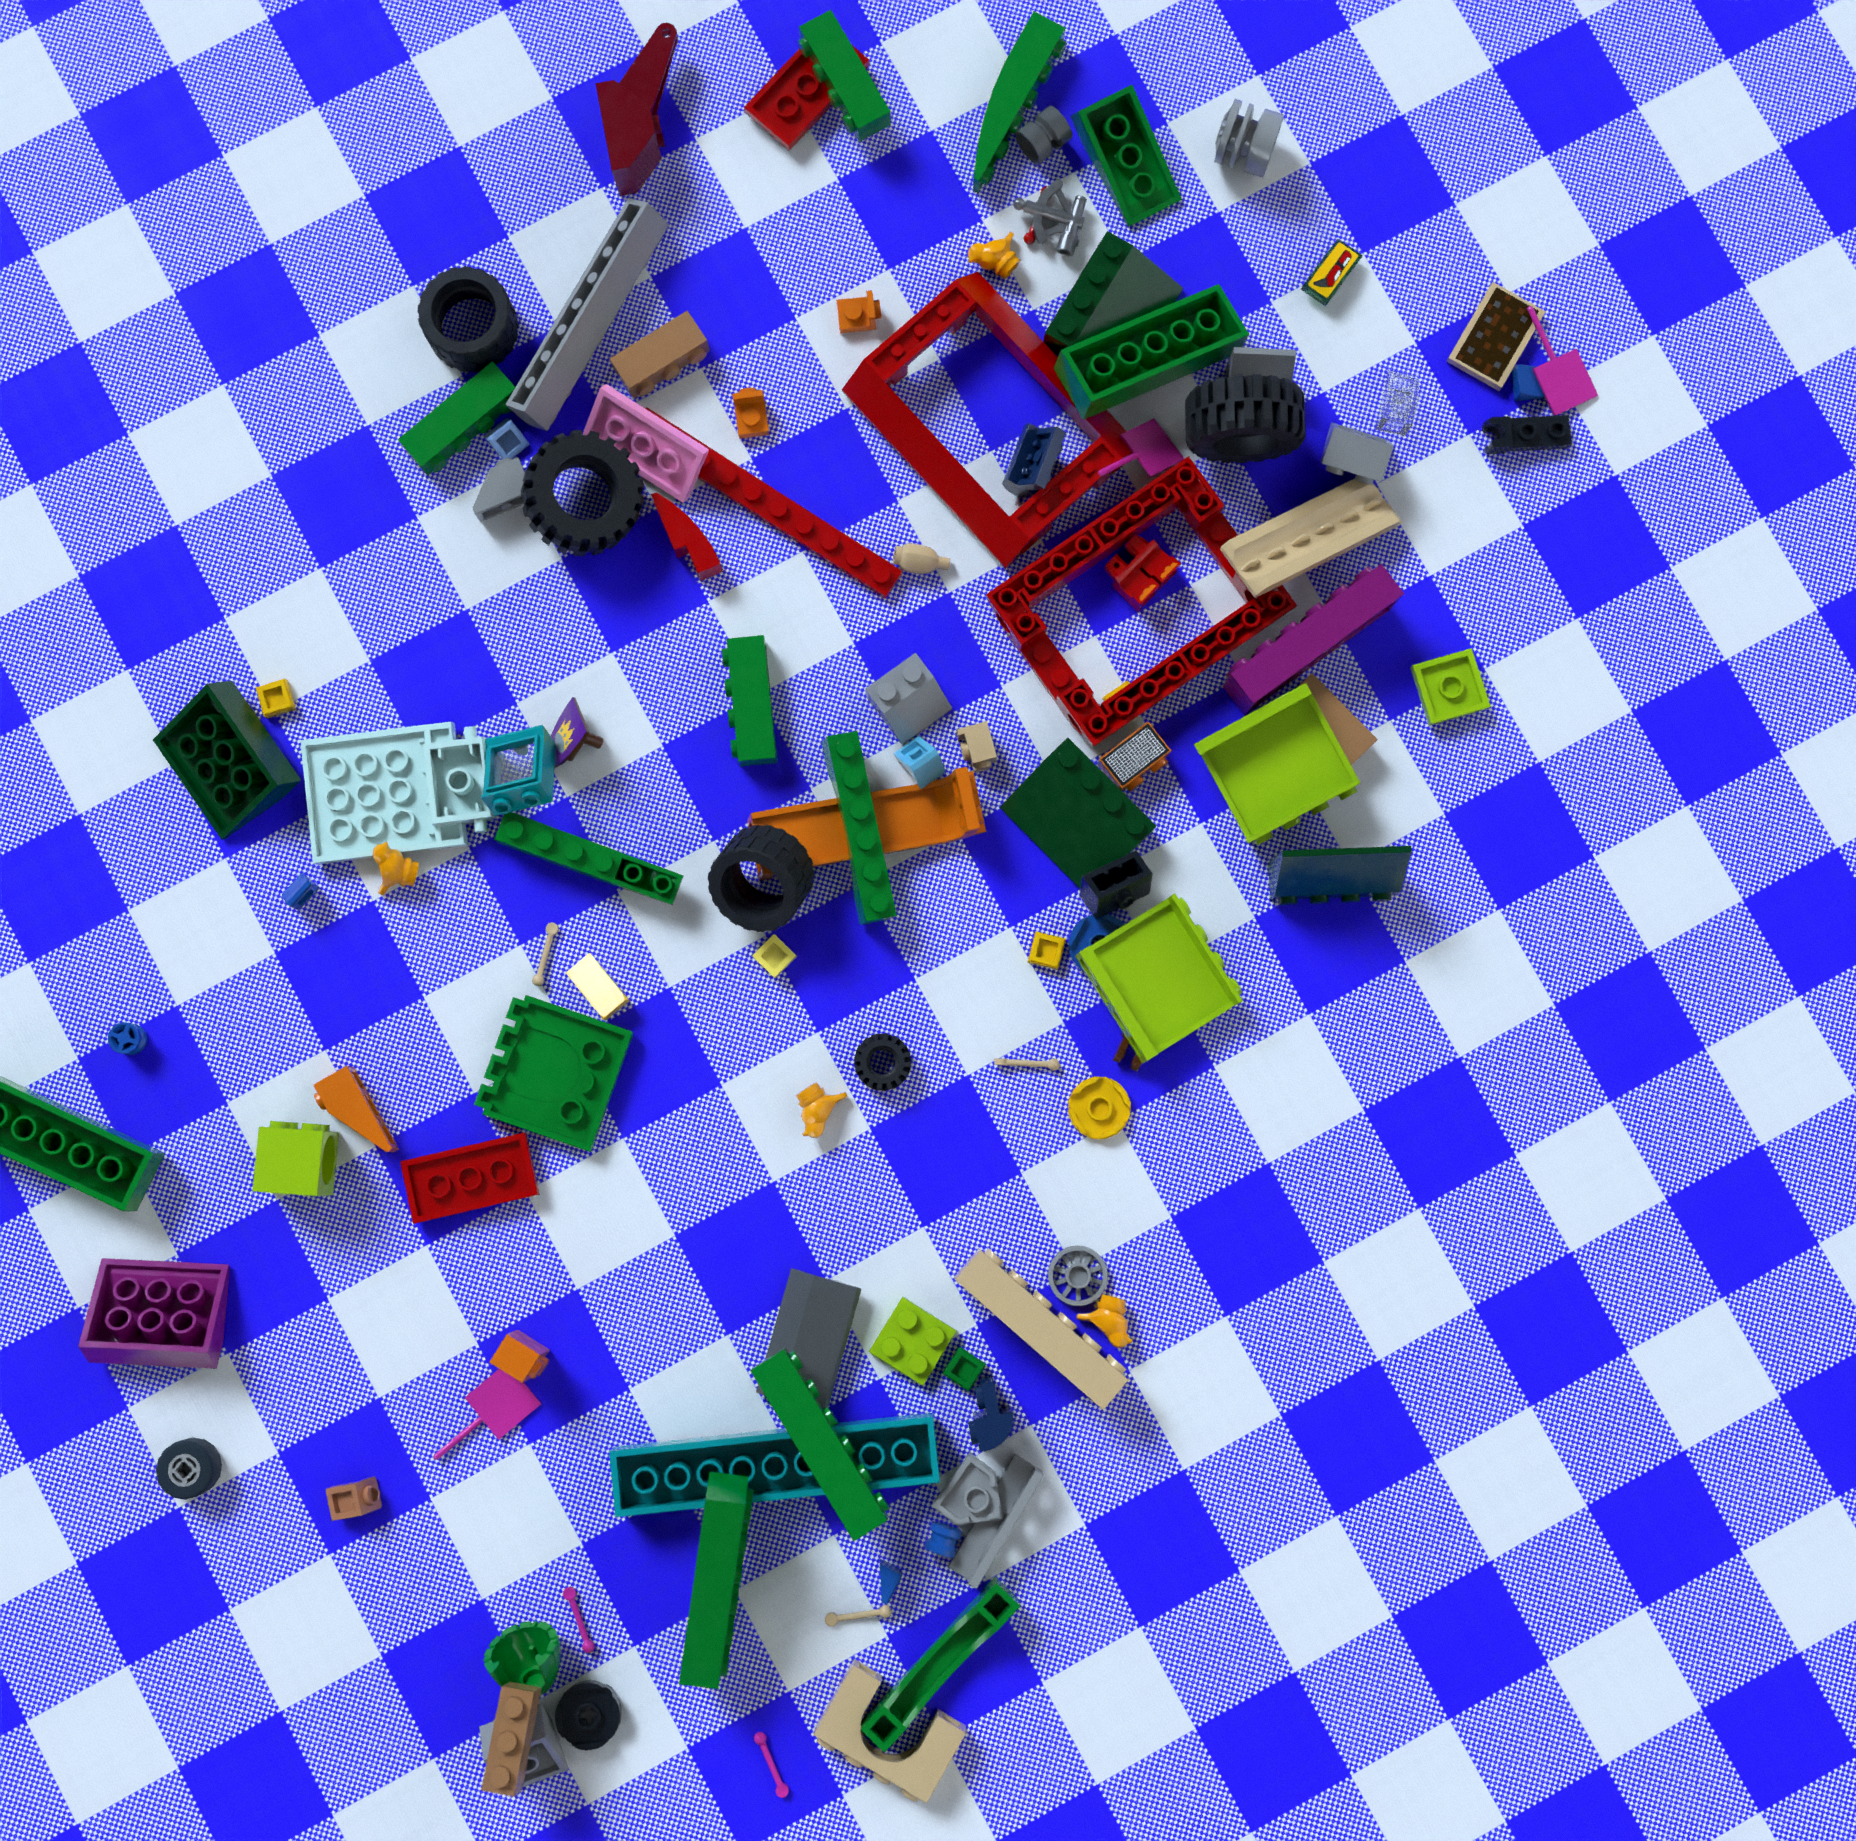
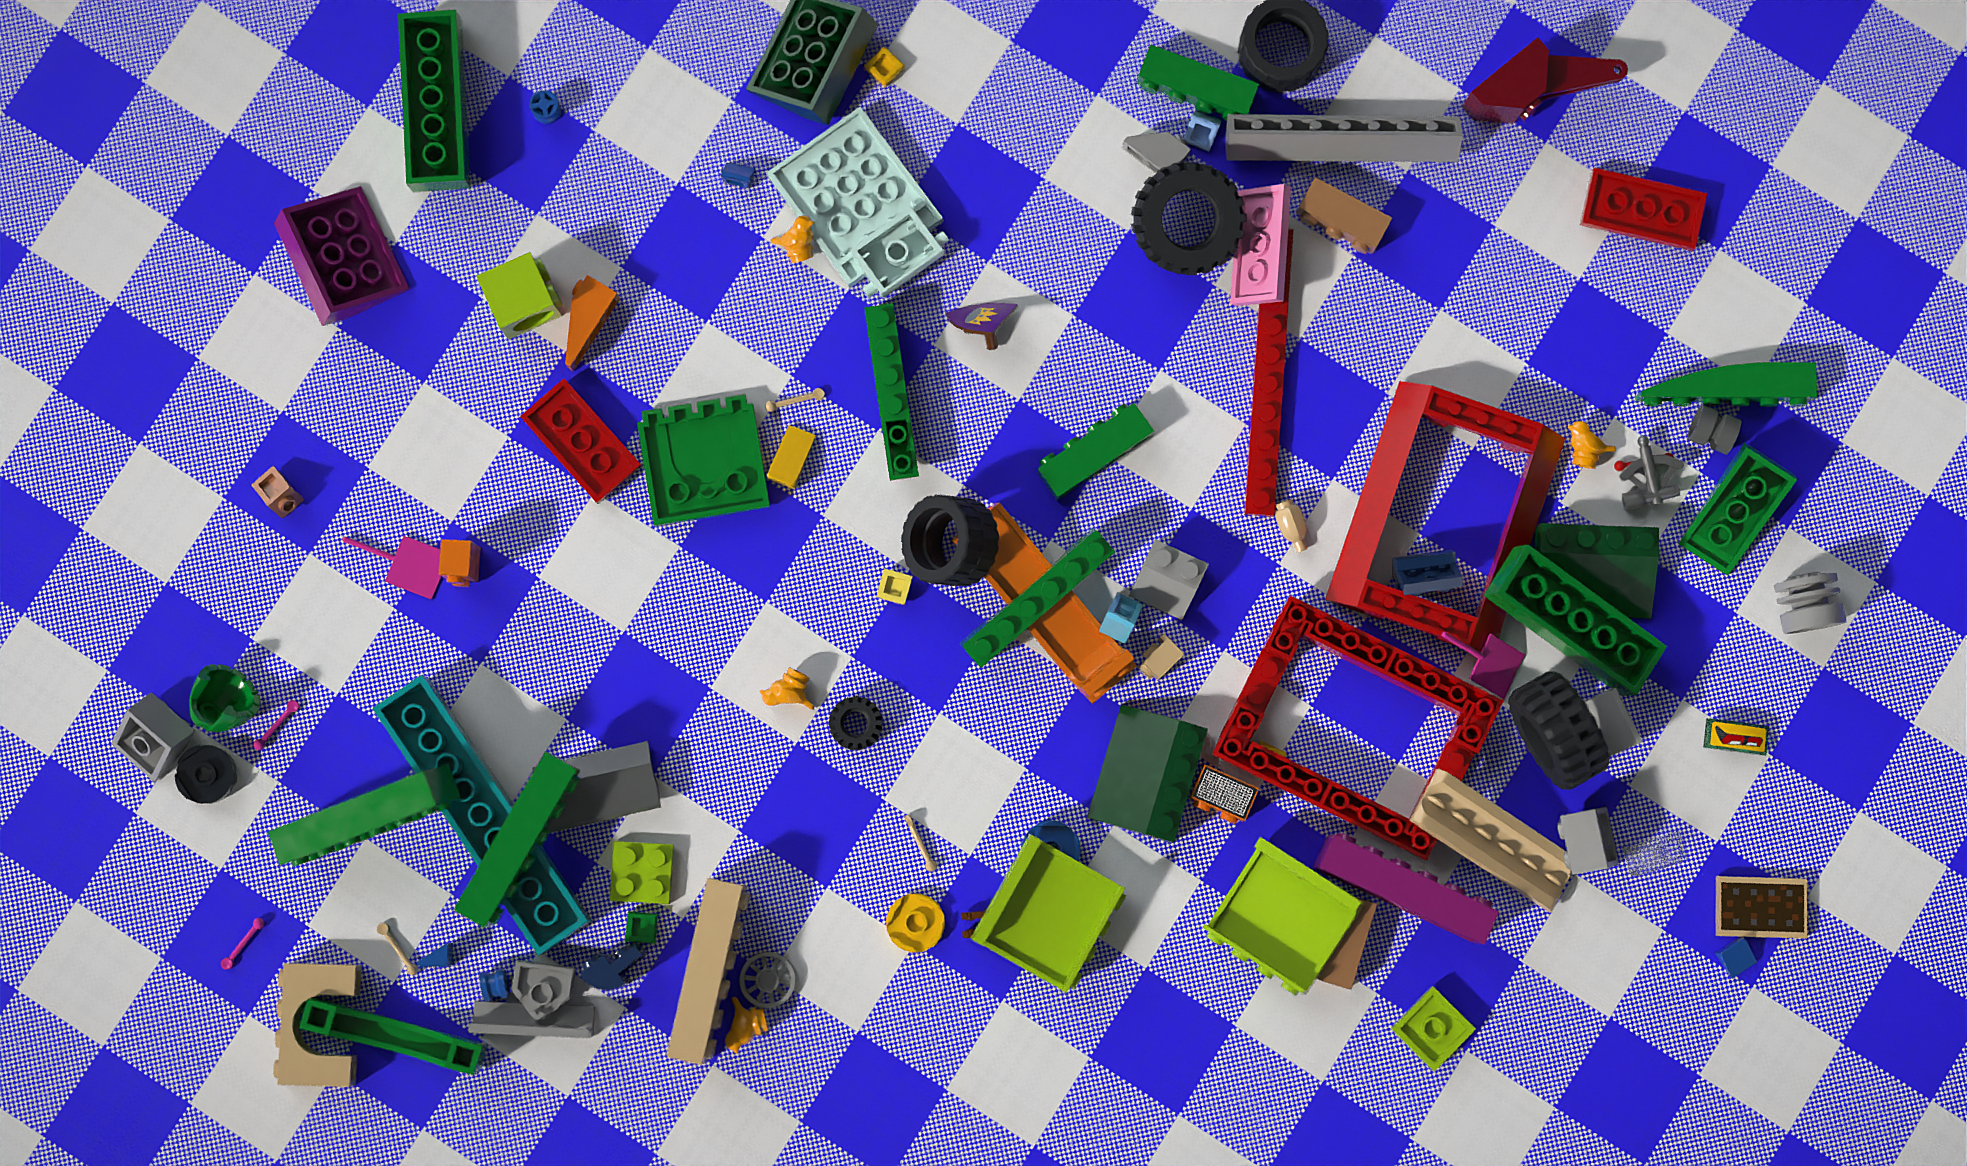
camera: 60 degrees right, 0 degrees up
(201, 1465) = (243, 349): black wheel -> none
(511, 1739) = (155, 722): medium nougat brick -> none
(519, 770) = (931, 295): teal window -> none
(687, 538) = (1201, 323): red slope -> none
(750, 413) = (1337, 317): orange bracket -> none
(844, 76) = (1666, 236): green brick -> none
(858, 313) = (1472, 359): orange bracket -> none
(1046, 950) = (1022, 808): yellow tile -> none
(1116, 885) = (1106, 836): black brick -> none
(1144, 574) = (1397, 715): red hips -> none
(1338, 874) = (1216, 1016): slope -> none
(1527, 433) = (1691, 980): black plate -> none
(1563, 377) = (1757, 986): dark pink piece -> none

